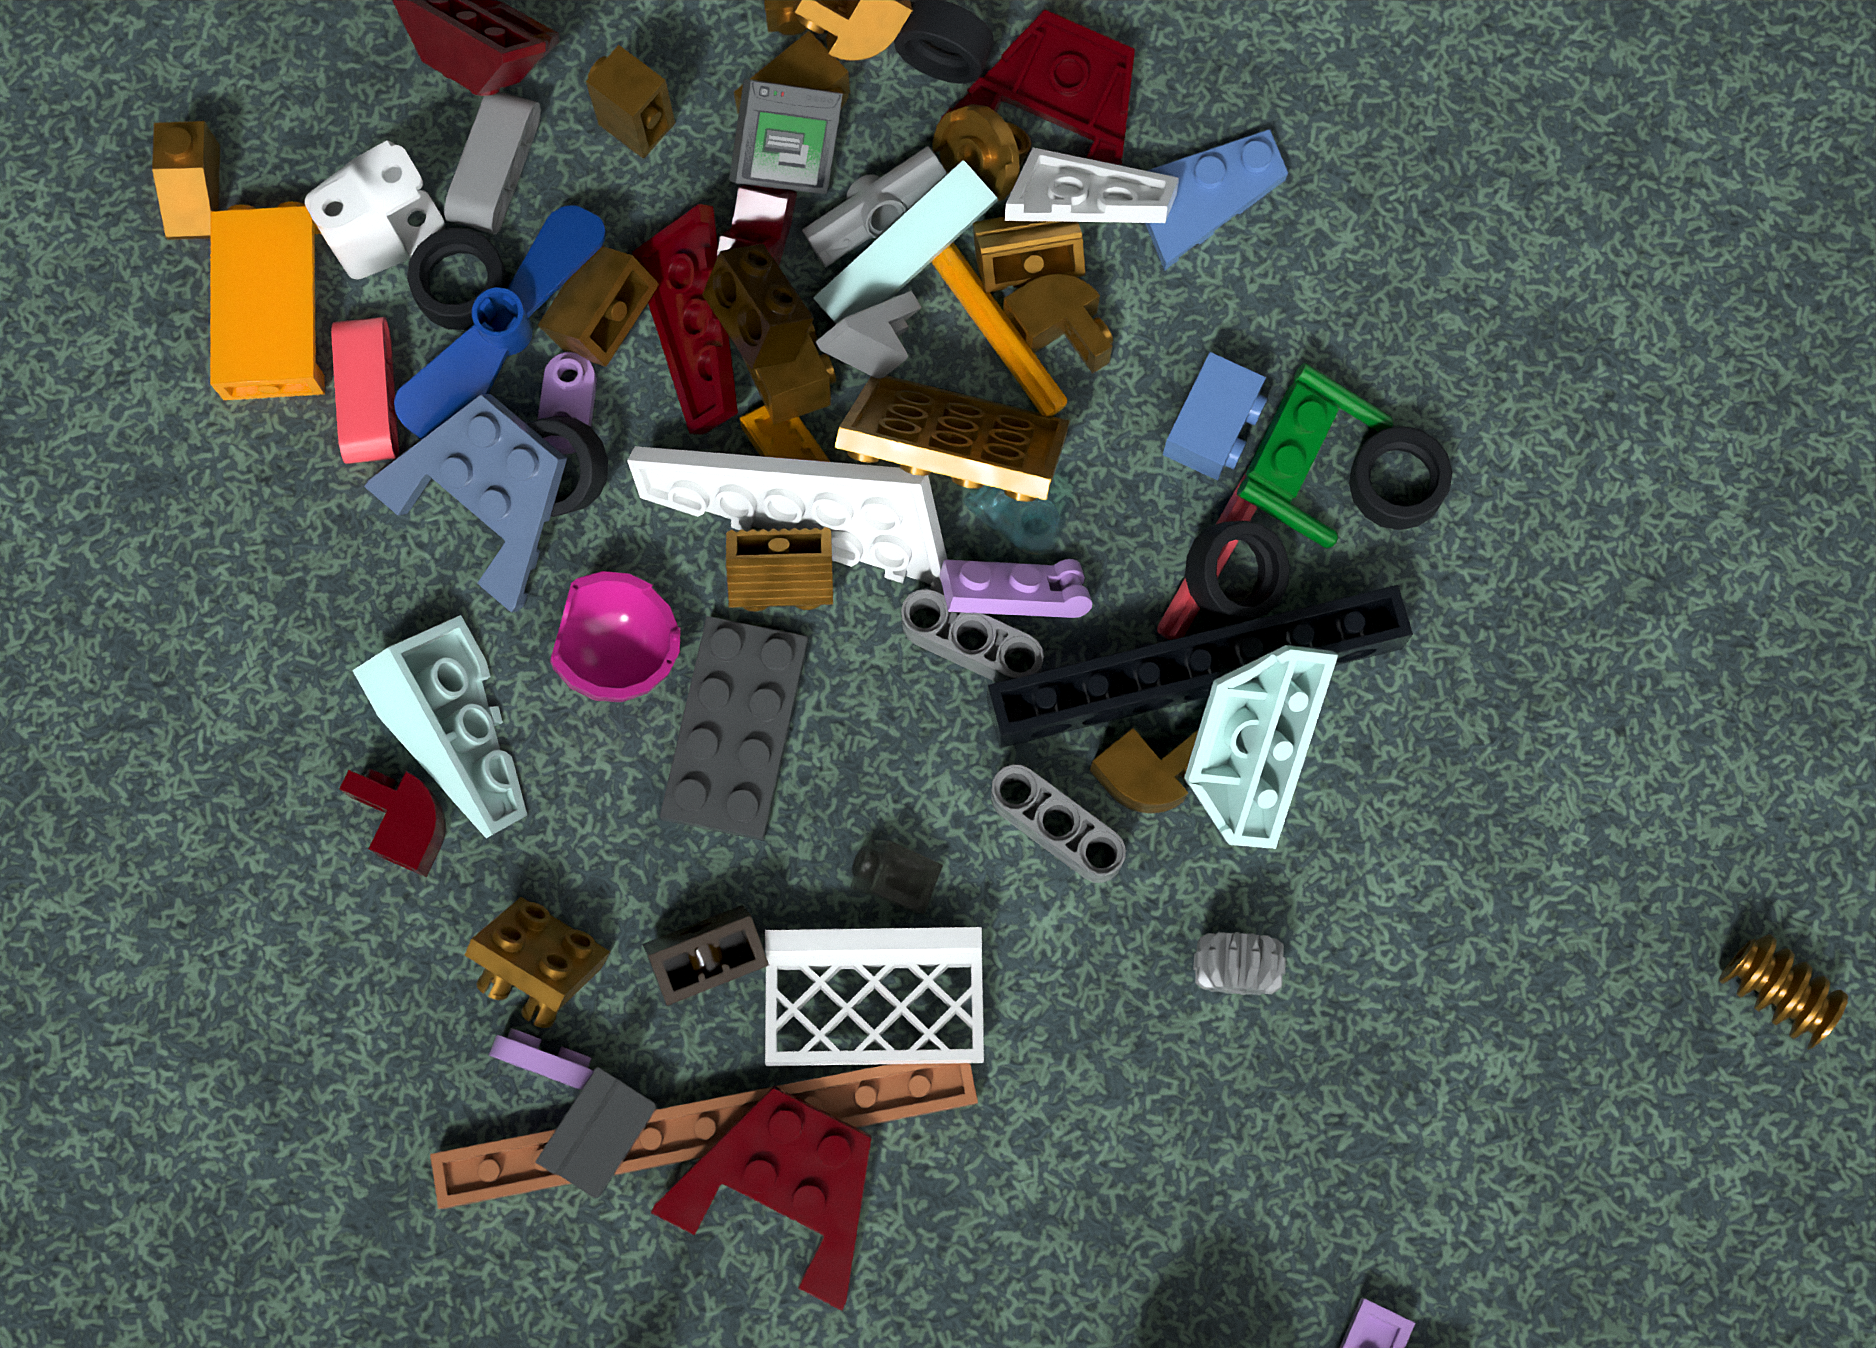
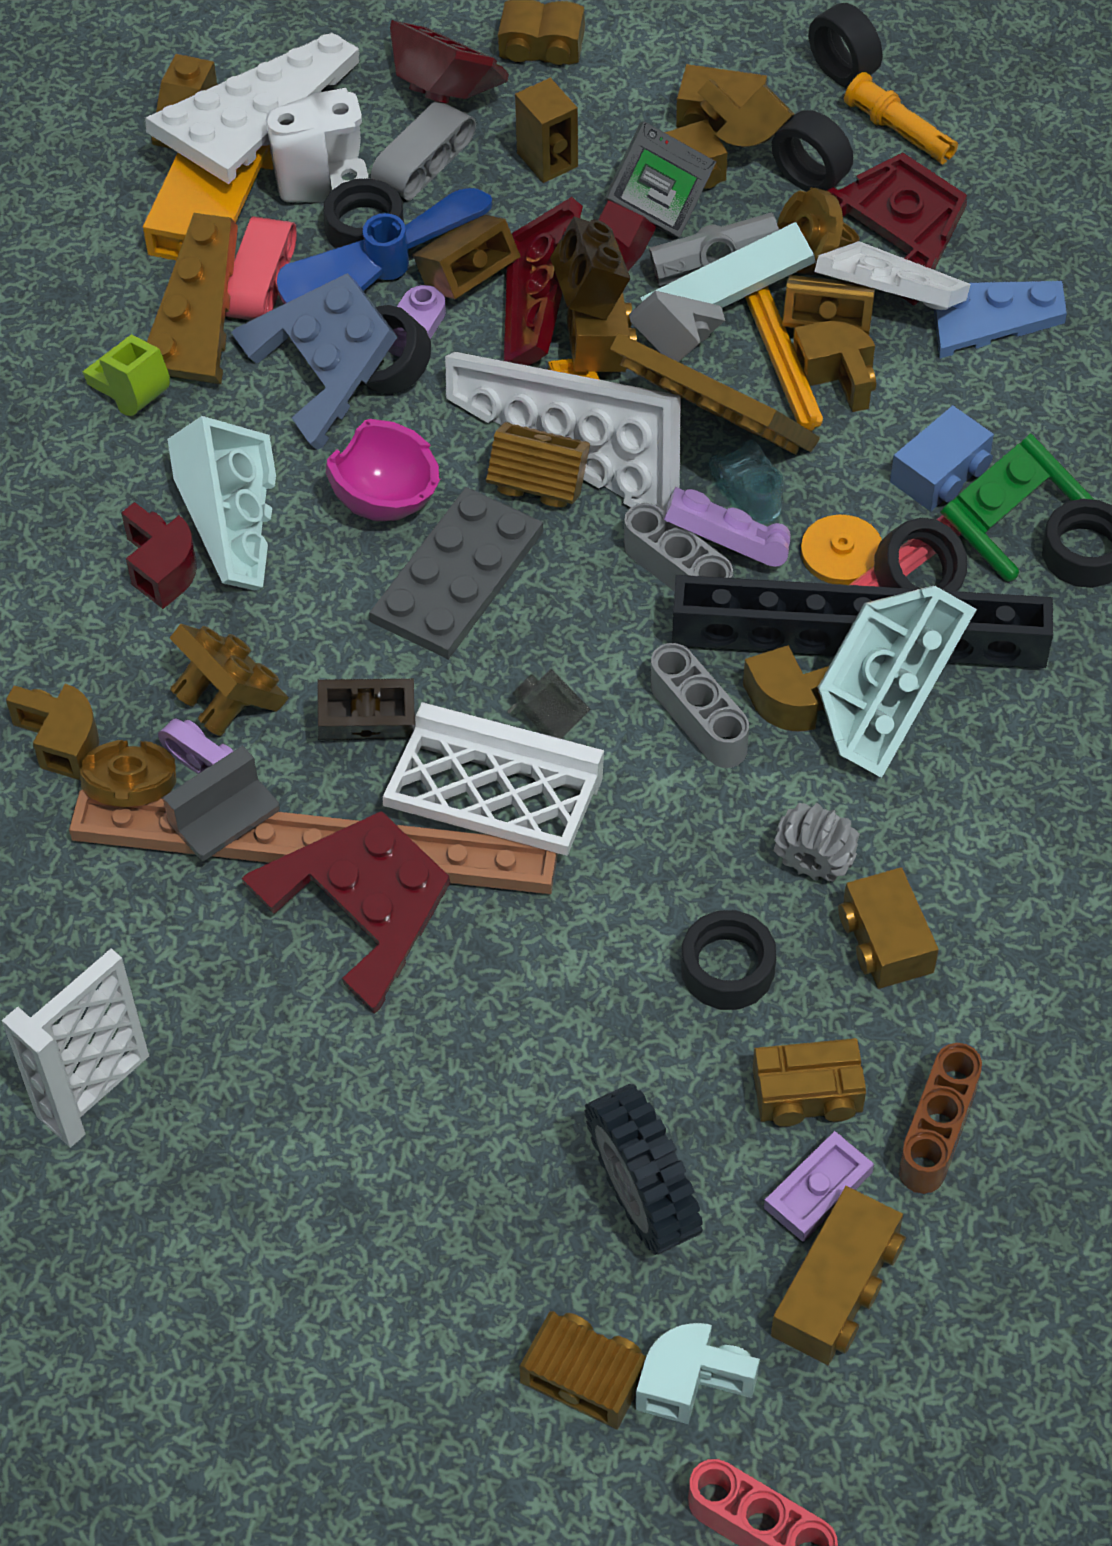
camera: 20 degrees right, 20 degrees down
(250, 204) = (228, 121): none -> white wing
(271, 592) = (130, 374): none -> lime brick
(312, 478) = (195, 301): none -> pearl gold wing
(389, 1078) = (62, 723): none -> pearl gold brick
(474, 1115) = (128, 774): none -> pearl gold tile
(1140, 563) = (839, 548): none -> light orange piece
(1229, 1115) = (728, 926): none -> black tyre
(1319, 1247) = (809, 1081): none -> pearl gold brick
(1342, 1037) = (888, 928): none -> pearl gold brick
(1477, 1219) = (946, 1097): none -> dark orange beam

